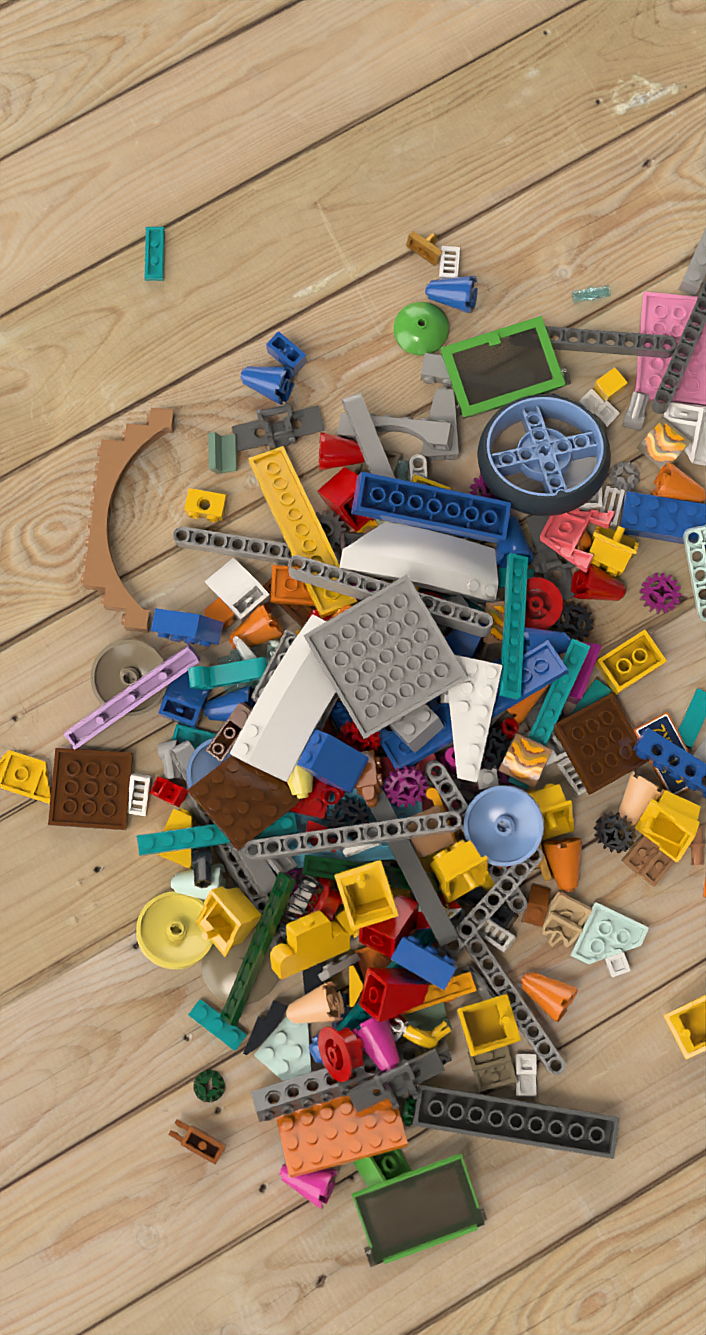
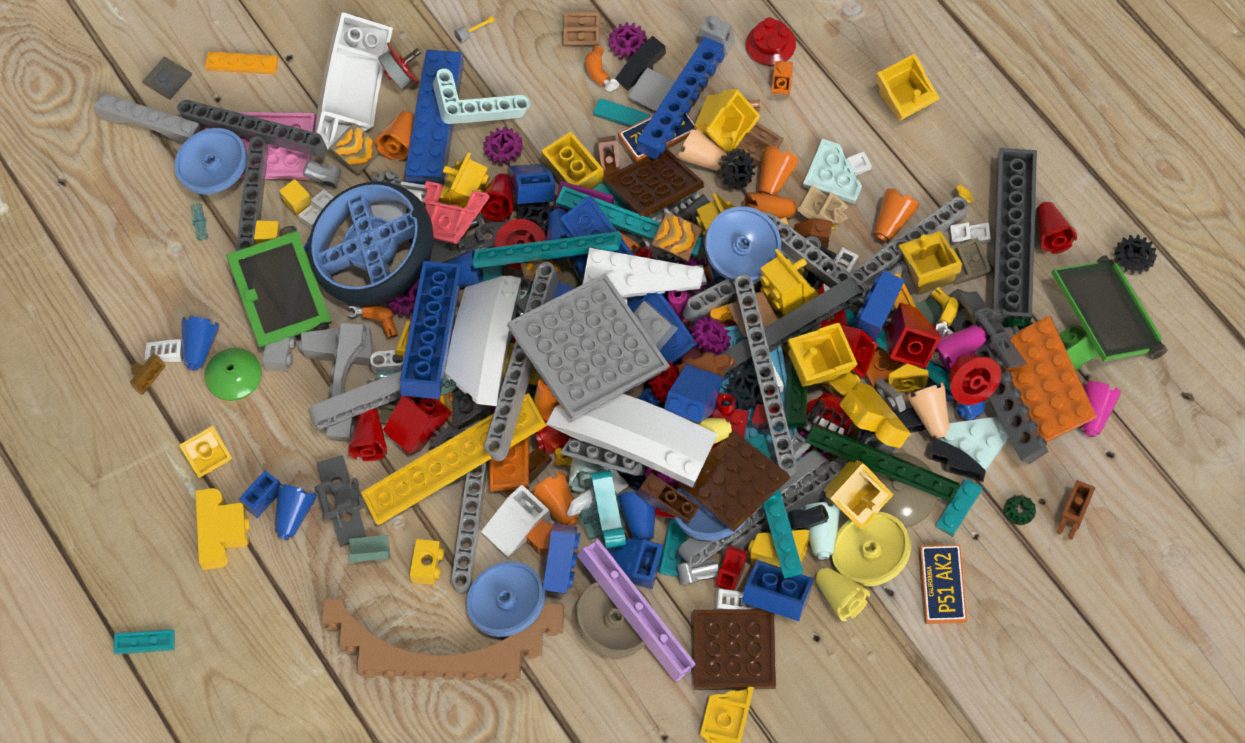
camera: 90 degrees left, 15 degrees down
(134, 895) = (842, 594): none -> light yellow cone
(137, 820) = (773, 593): none -> blue brick
(138, 998) = (943, 584): none -> tile
(158, 576) = (505, 599): none -> medium blue dish
(257, 315) = (219, 528): none -> yellow brick
(337, 303) = (205, 452): none -> yellow slope
(469, 468) = (379, 314): none -> orange arm
(478, 1256) = (1135, 254): none -> black gear
(523, 1165) = (1054, 229): none -> red cone
(566, 782) = (692, 208): none -> dark grey piece
(569, 356) = (266, 231): none -> yellow piece
(572, 1074) = (965, 193): none -> yellow plant
(609, 873) = (775, 170): none -> orange cone
(611, 618) = (532, 183): none -> blue slope
(642, 700) = (608, 154): none -> dark orange slope
(651, 300) = (210, 161): none -> medium blue dish

